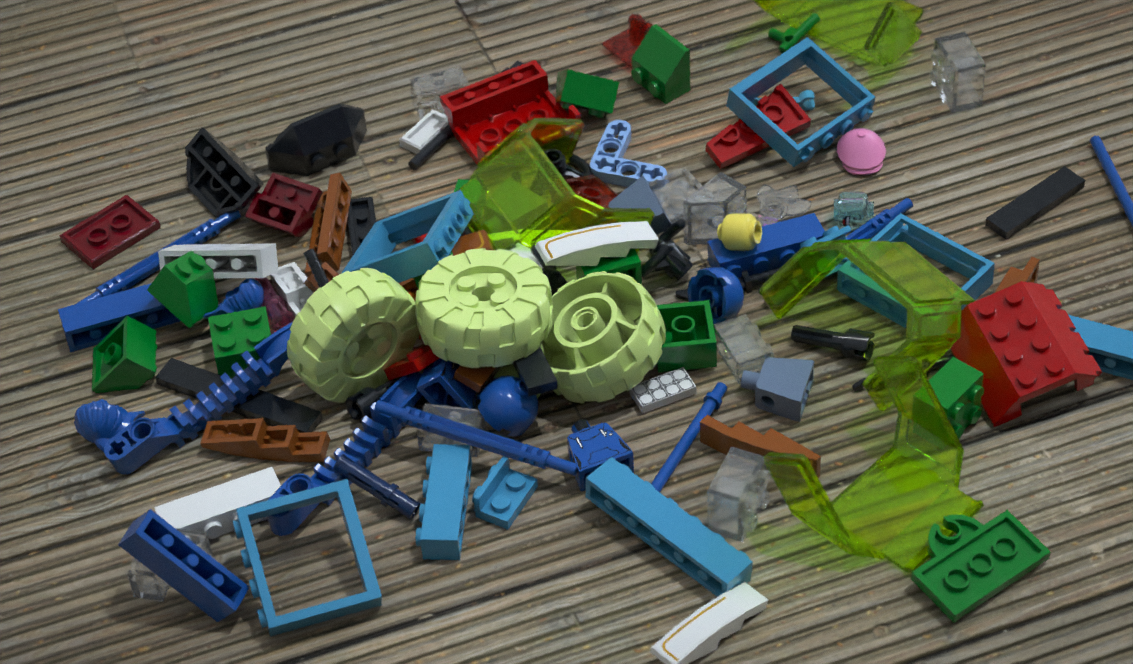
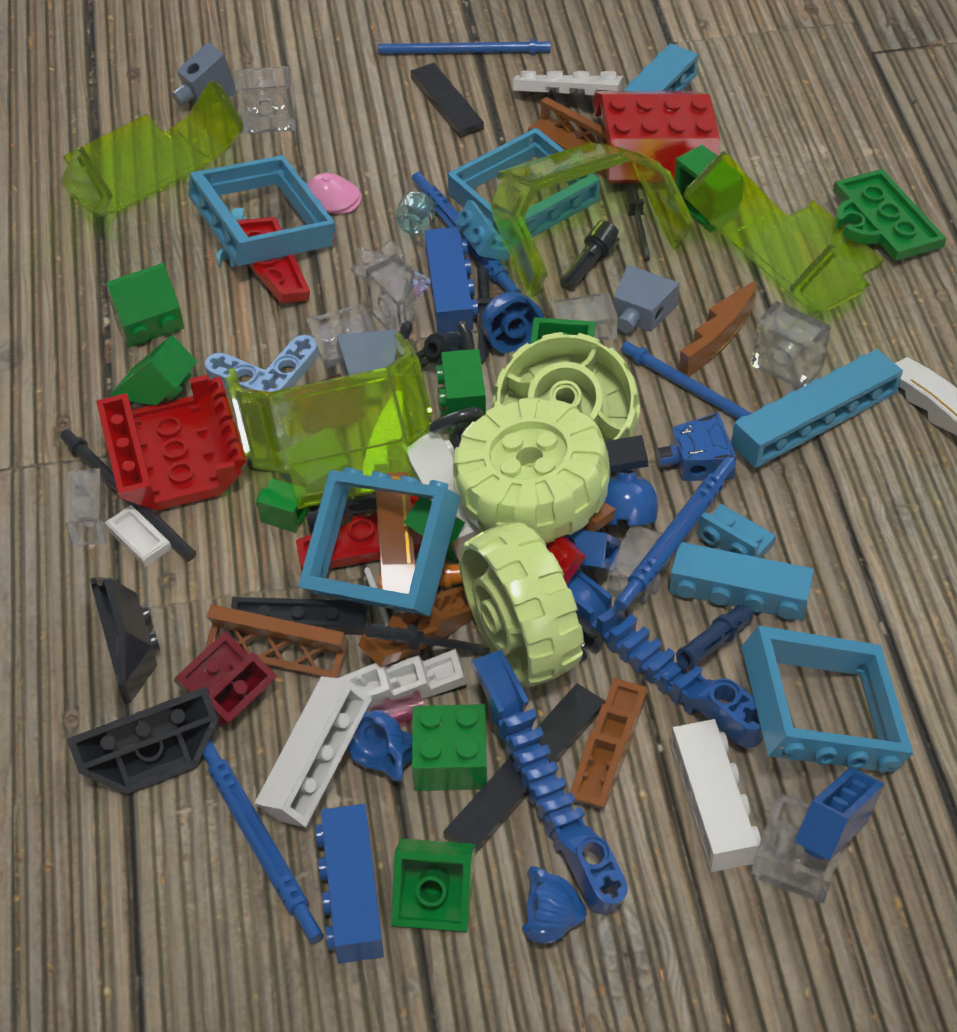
camera: 80 degrees left, 5 degrees up
(110, 231) = (176, 892): dark red tile -> none
(186, 288) = (355, 785): green slope -> none
(589, 244) = (457, 369): white slope -> none
(628, 41) = (84, 329): clear red hinge -> none
(739, 232) = (447, 277): light yellow head -> none
(793, 35) = (132, 210): green hose -> none
(983, 26) = (199, 70): none -> sand blue torso
(1086, 288) = (567, 83): none -> white wing

